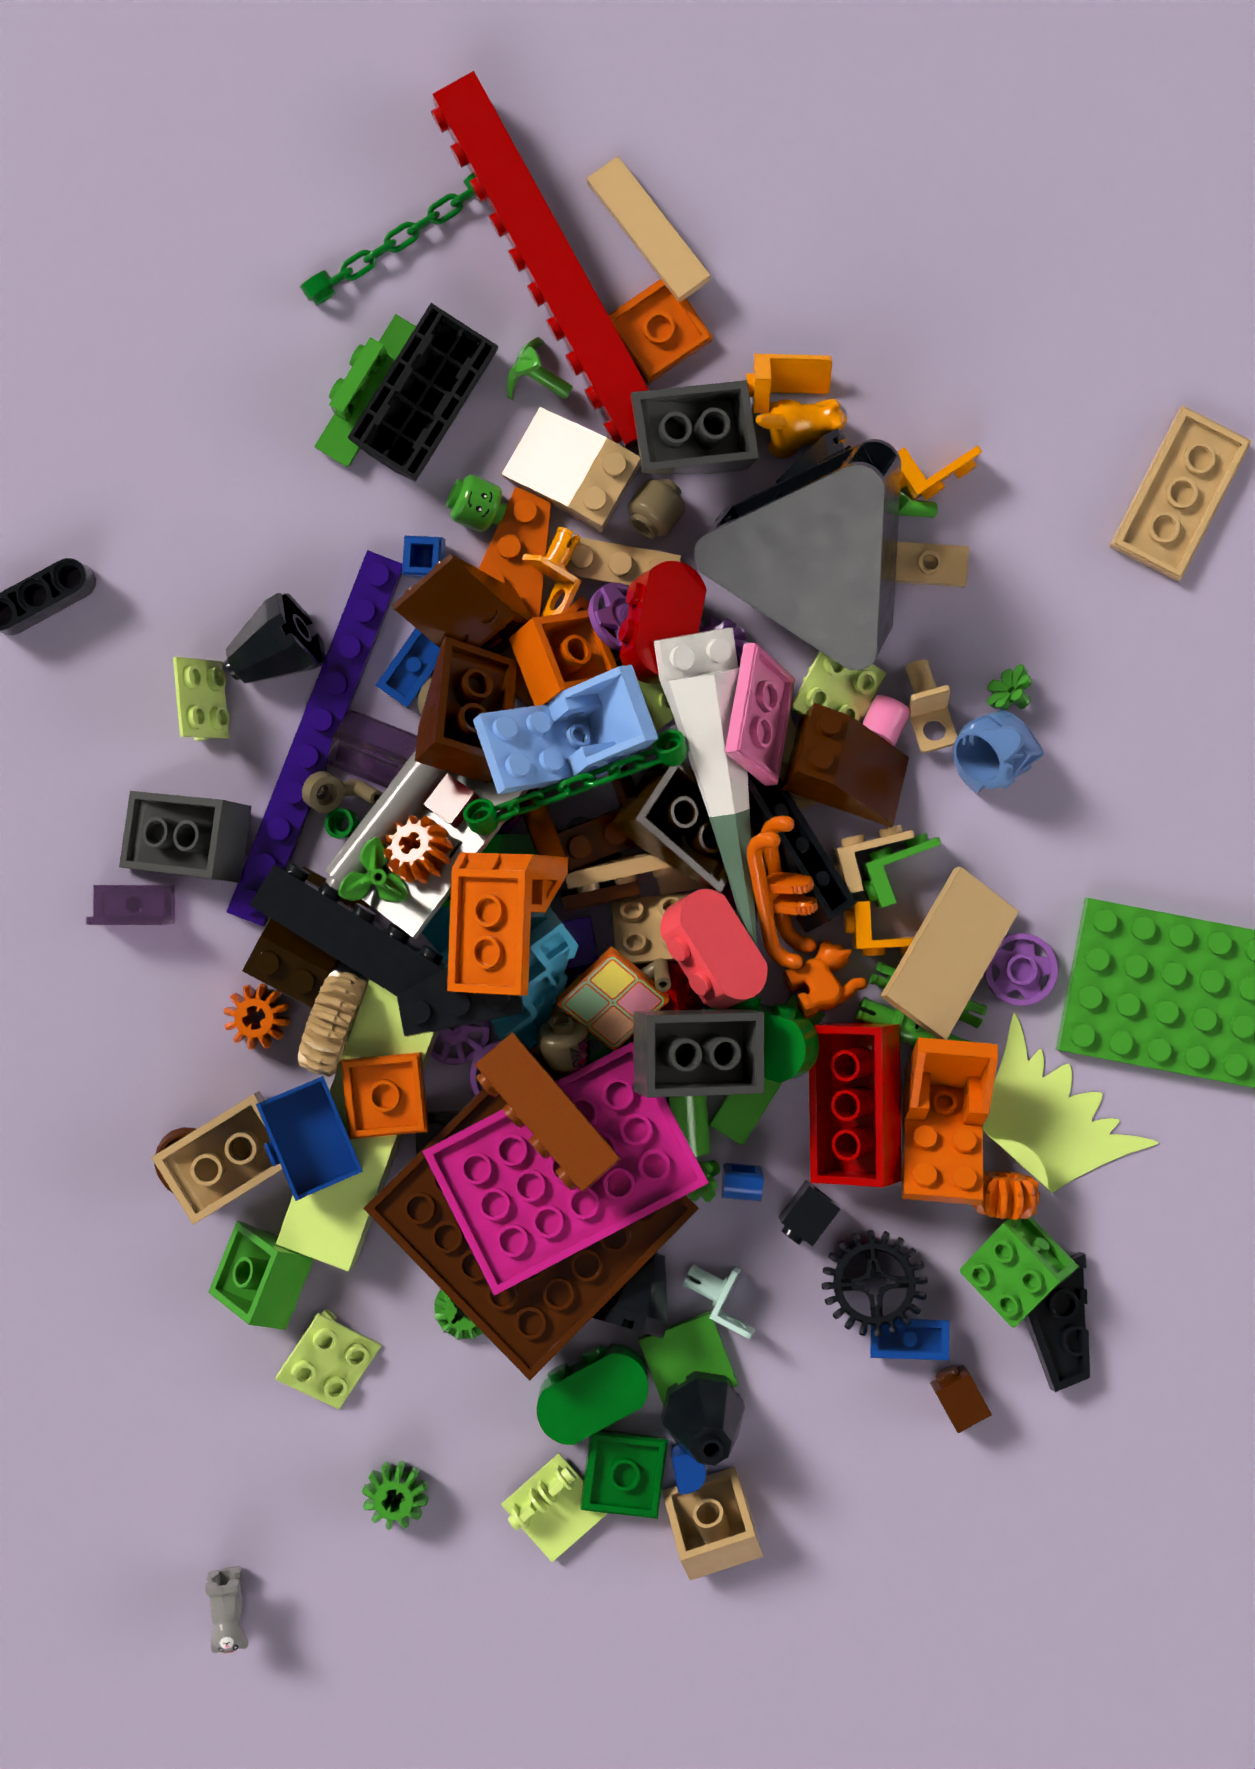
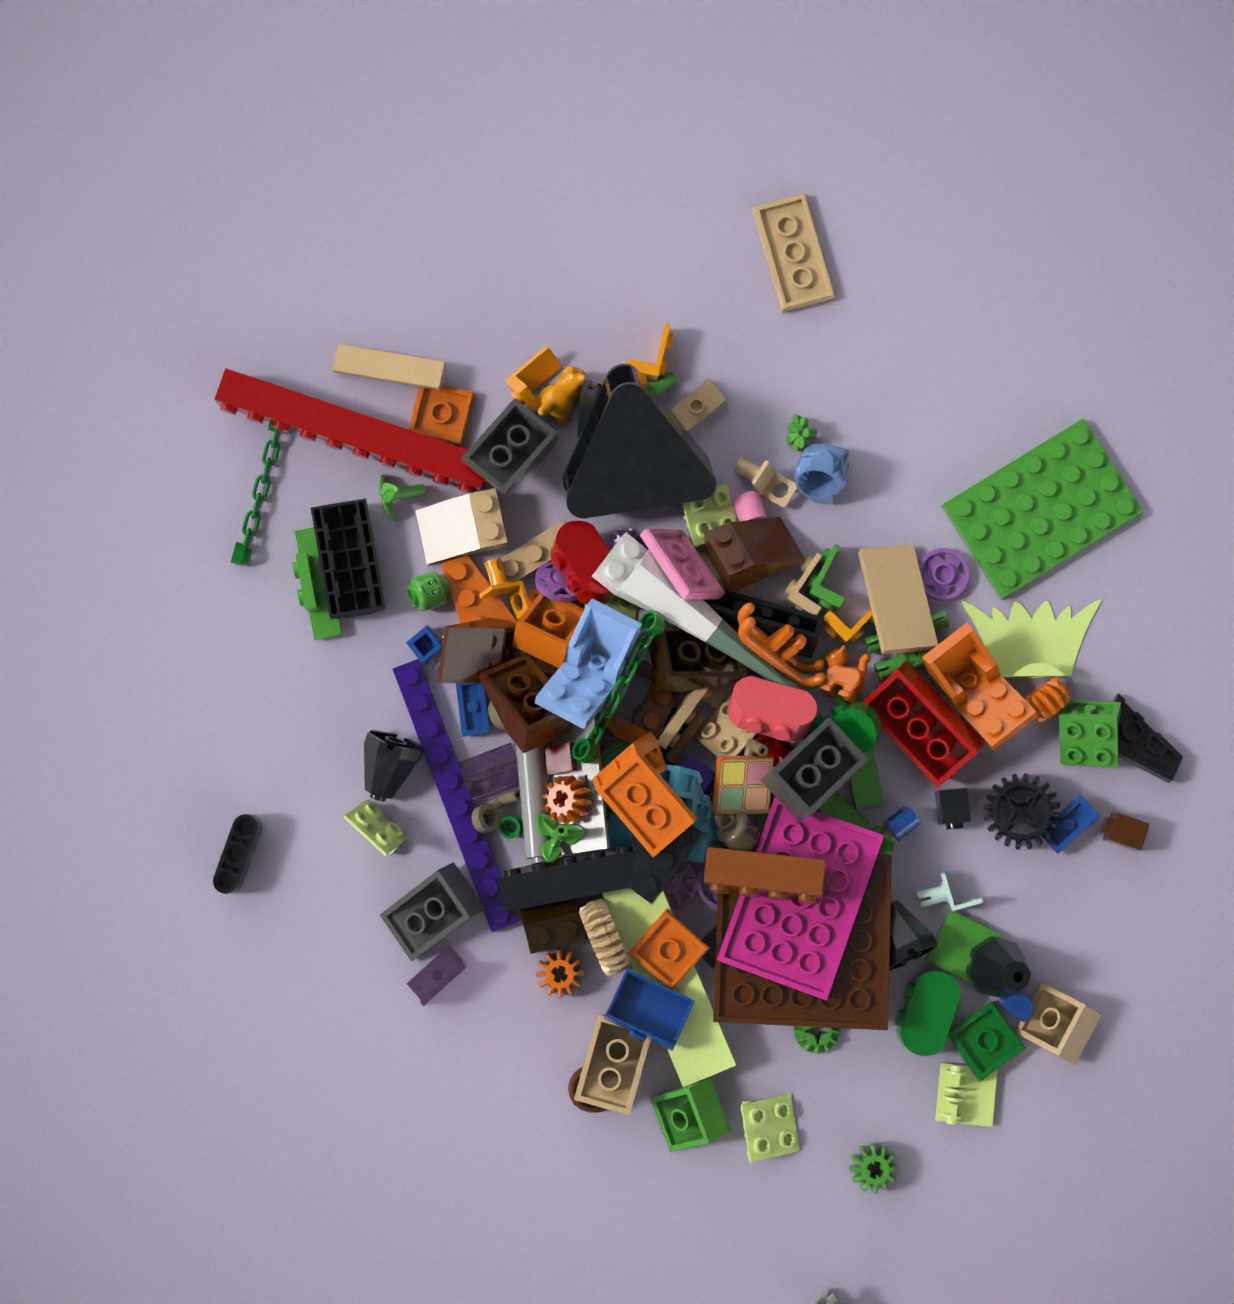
camera: 45 degrees left, 5 degrees down
(656, 508) = (526, 507): dark tan head -> none

